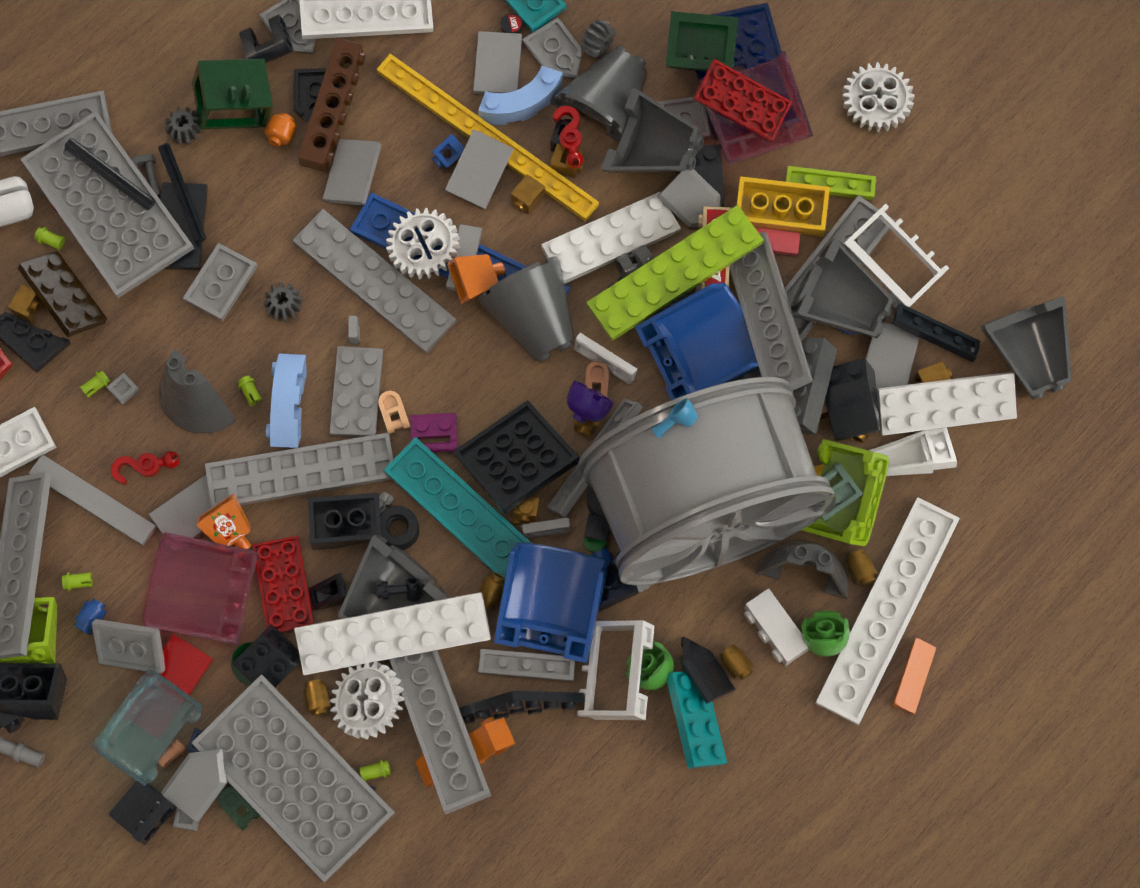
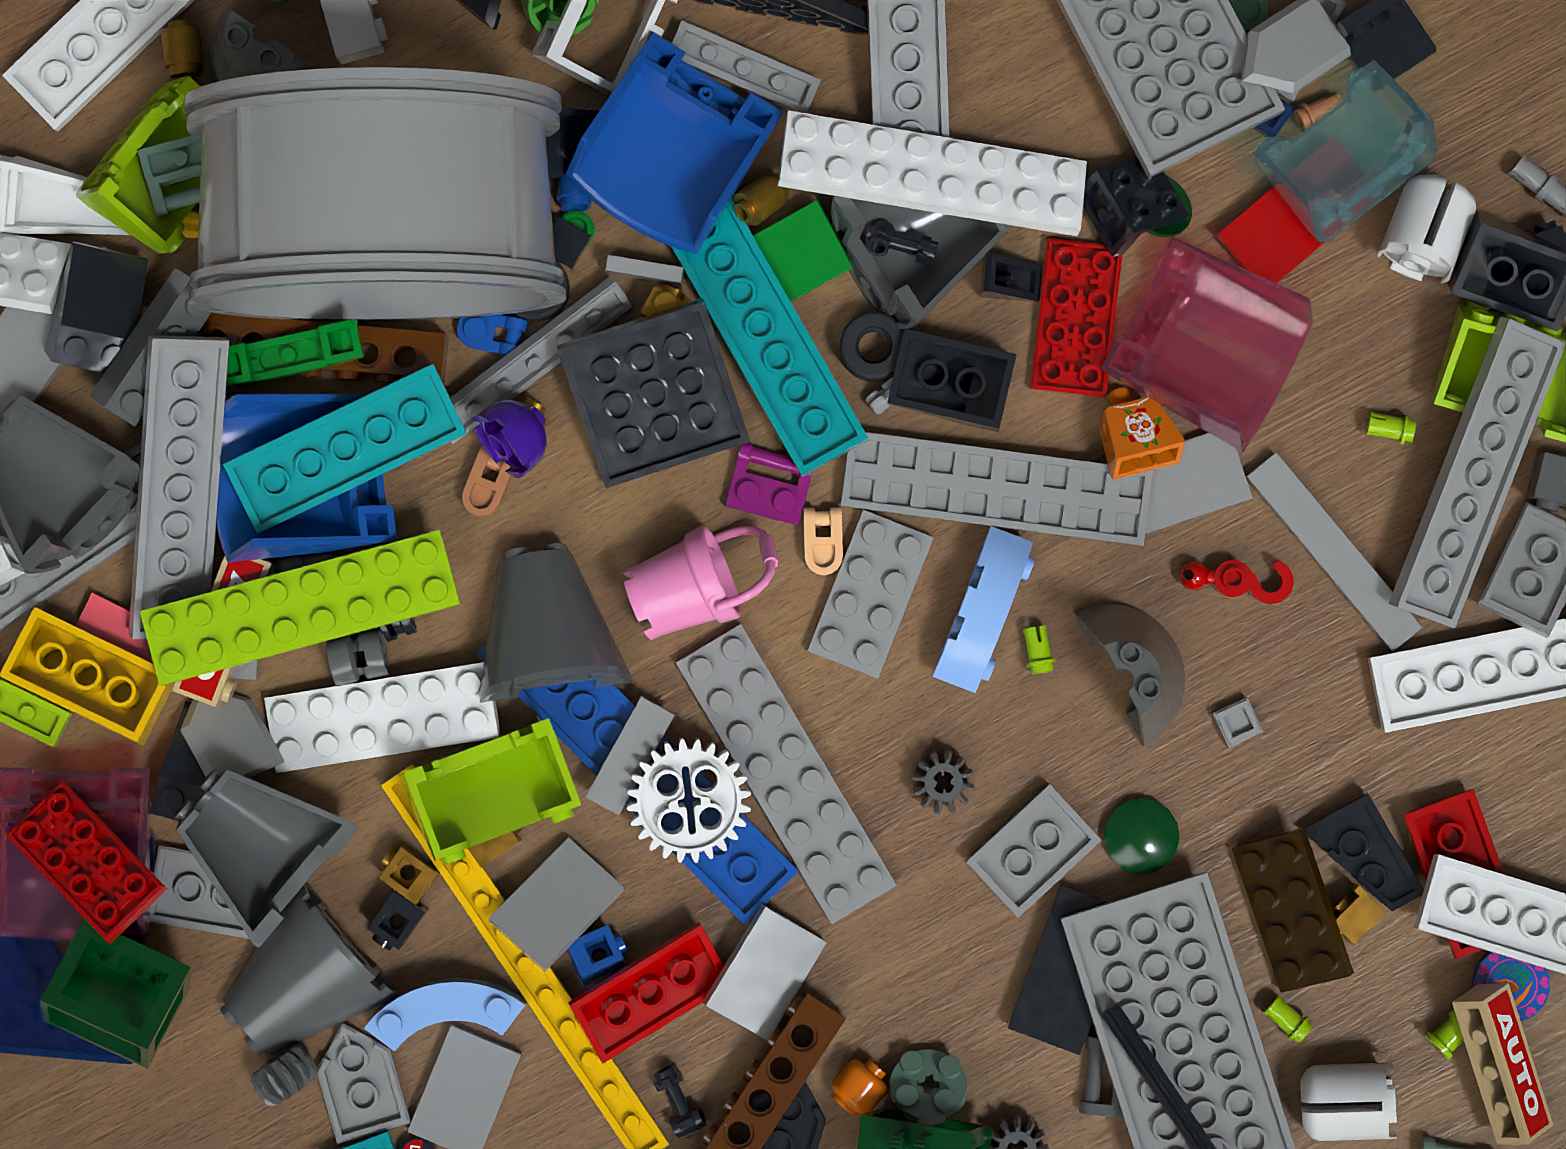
camera: 165 degrees left, 15 degrees up
(84, 702) = (1406, 238): none -> white cylinder
(88, 613) = (1385, 362): blue brick -> none
(95, 383) = (1279, 742): lime pin -> none
(128, 646) = (1340, 286): light grey tile -> none
(161, 310) = (1141, 836): none -> dark green dish
(182, 193) = (1052, 1022): black axle -> none
(234, 150) = (926, 1065): none -> sand green plate
(316, 697) = (1076, 122): pearl gold brick -> none
(354, 330) = (843, 696): light grey tile -> none
(367, 700) = (973, 76): white gear -> none
(371, 85) = (687, 1120): none -> black bar
(412, 139) = (647, 993): none -> red slope
(456, 568) = (804, 251): none -> green tile
(457, 360) = (693, 582): none -> bright pink piece
(474, 275) = (623, 709): orange torso -> none
(537, 212) = (491, 790): none -> lime windscreen
(570, 137) = (390, 902): red piece -> none
(596, 352) = (466, 523): white tile -> none
(683, 361) = (344, 448): none -> teal plate
(685, 417) = (375, 240): dark azure bar -> none

